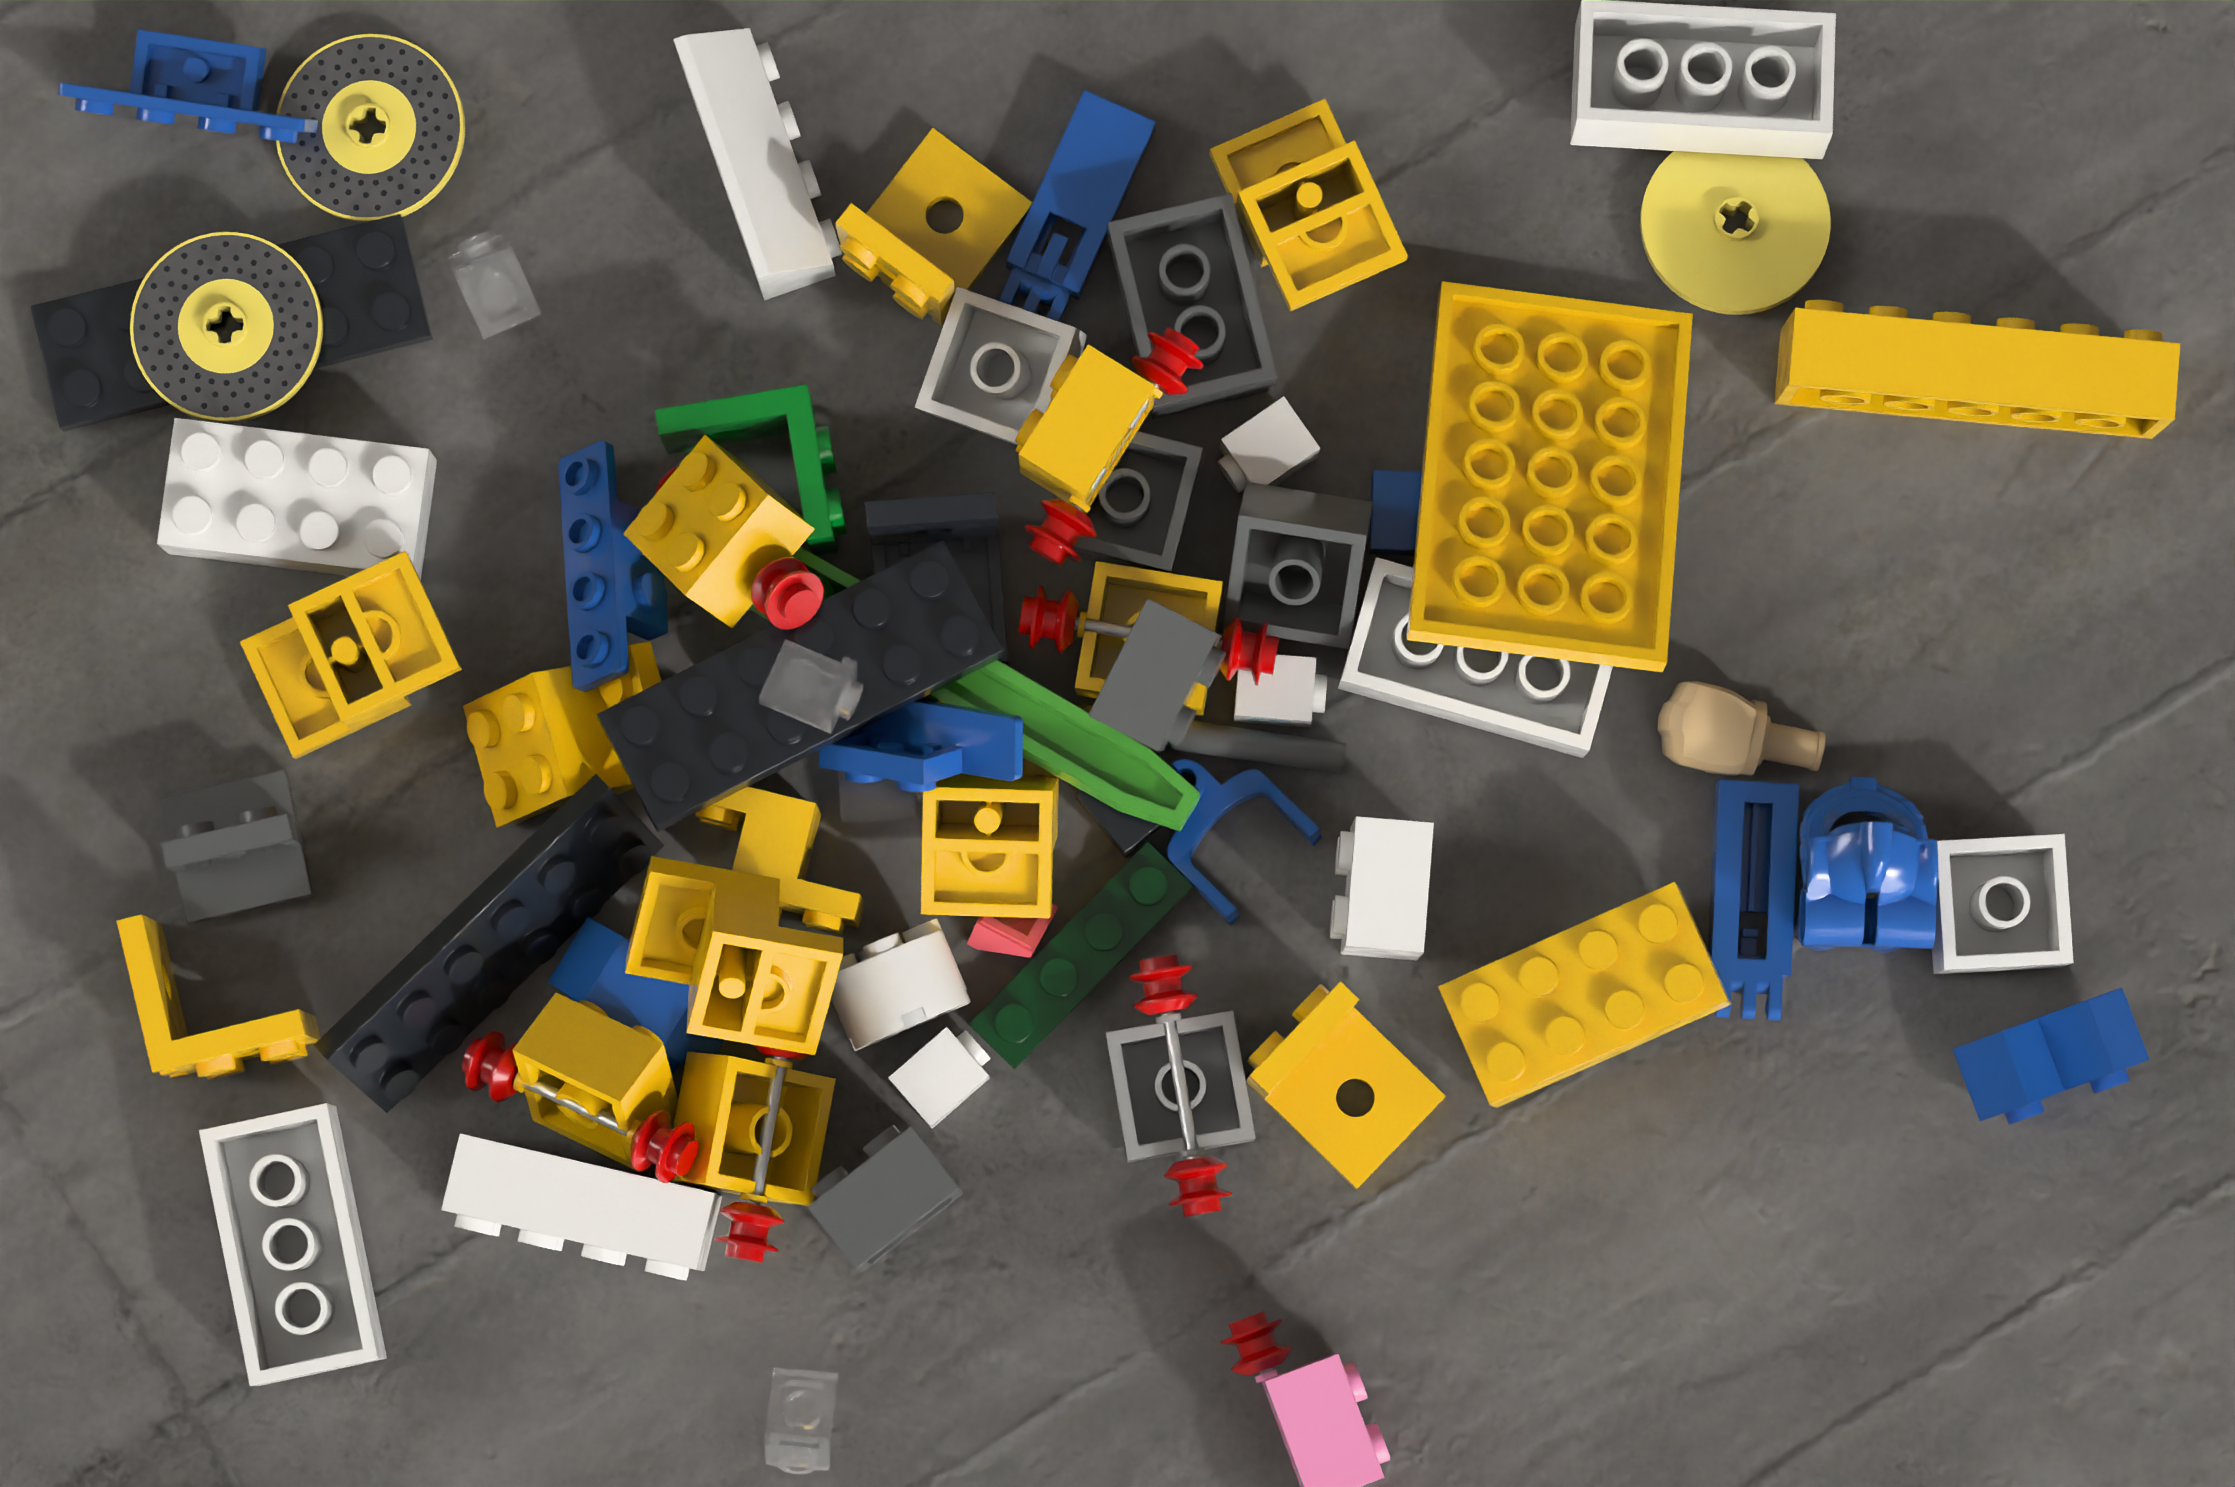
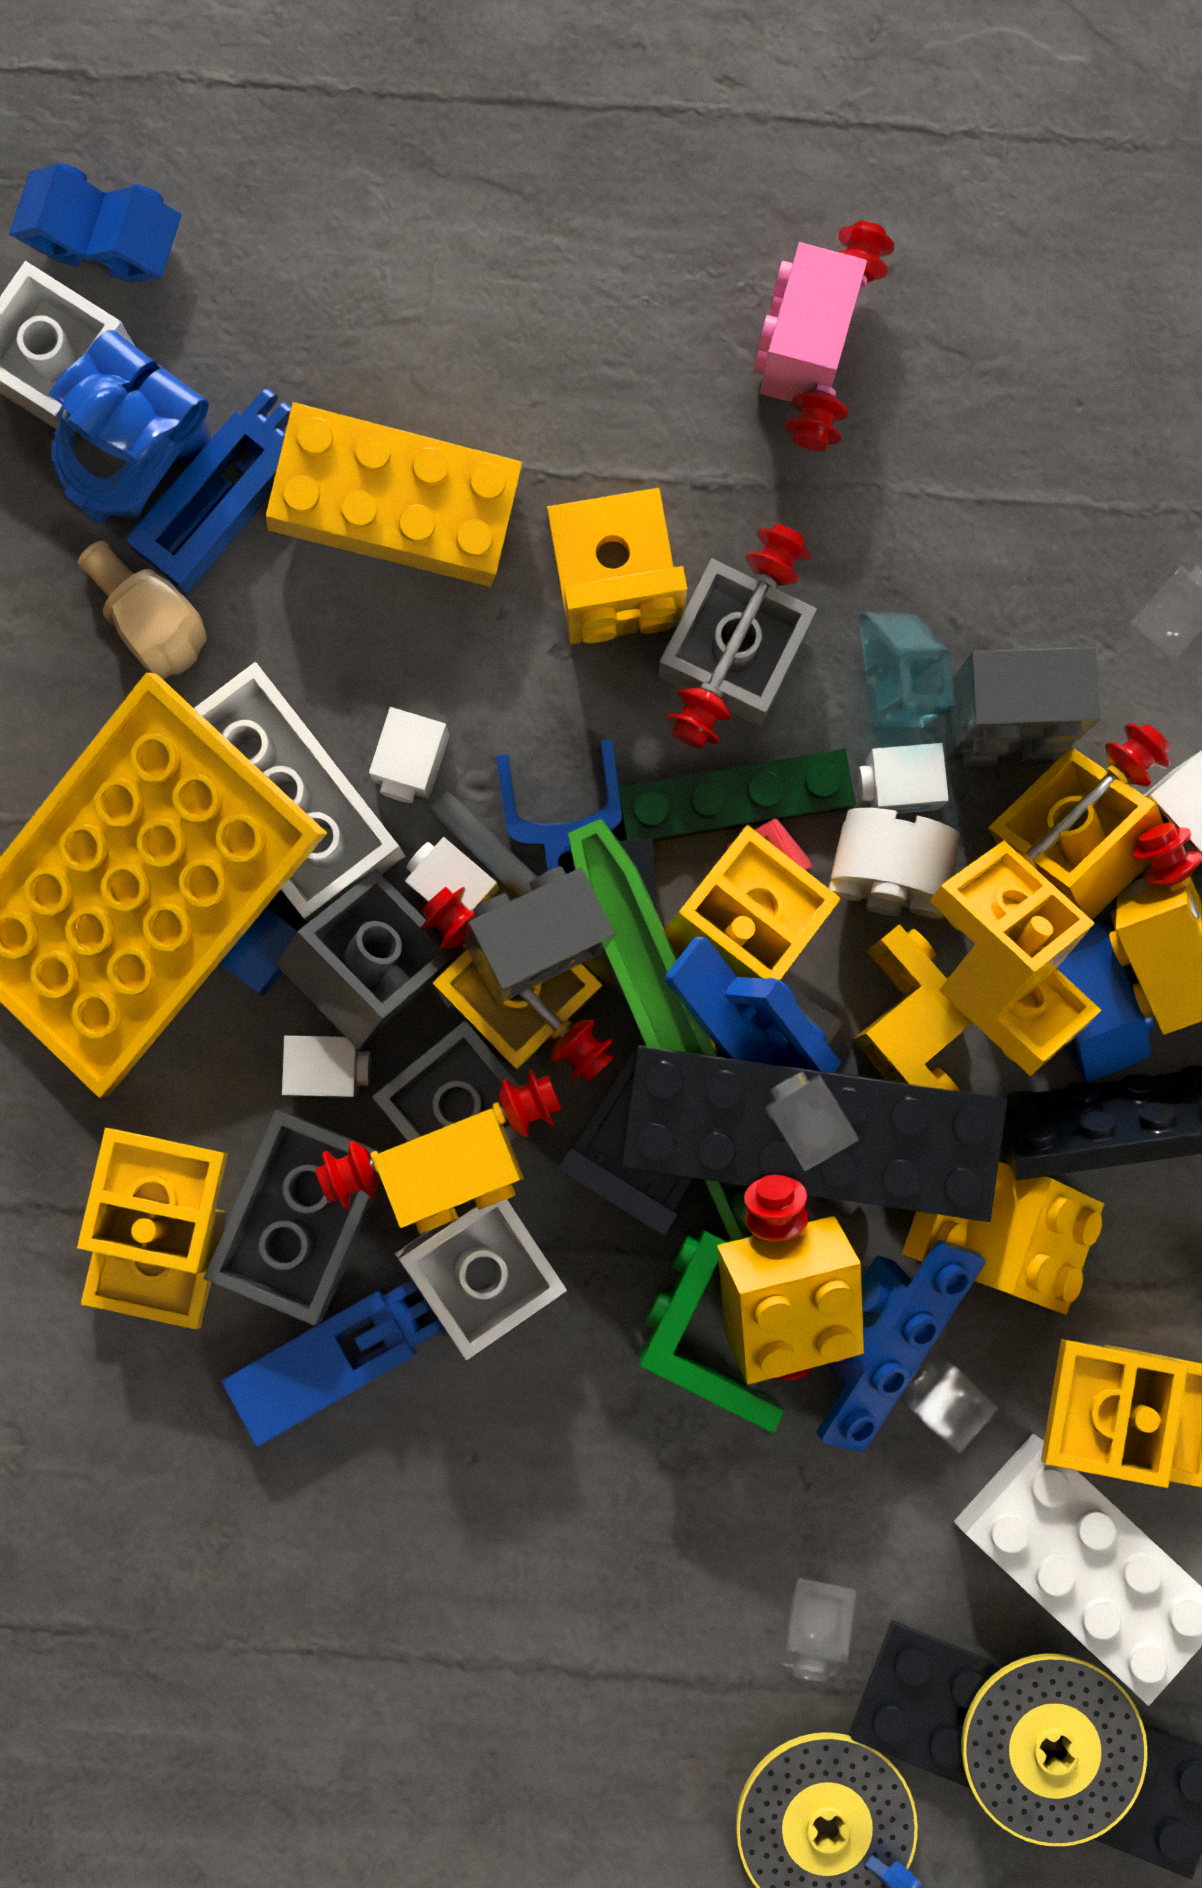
camera: 140 degrees left, 0 degrees up
(518, 554) = (947, 1401): none -> clear bracket
(757, 160) = (547, 1581): white slope -> none
(907, 252) = (483, 1415): yellow bracket -> none
(1014, 1177) = (905, 670): none -> clear light blue slope
(1385, 888) = (482, 673): white brick -> none
(1399, 774) = (408, 755): none -> white brick

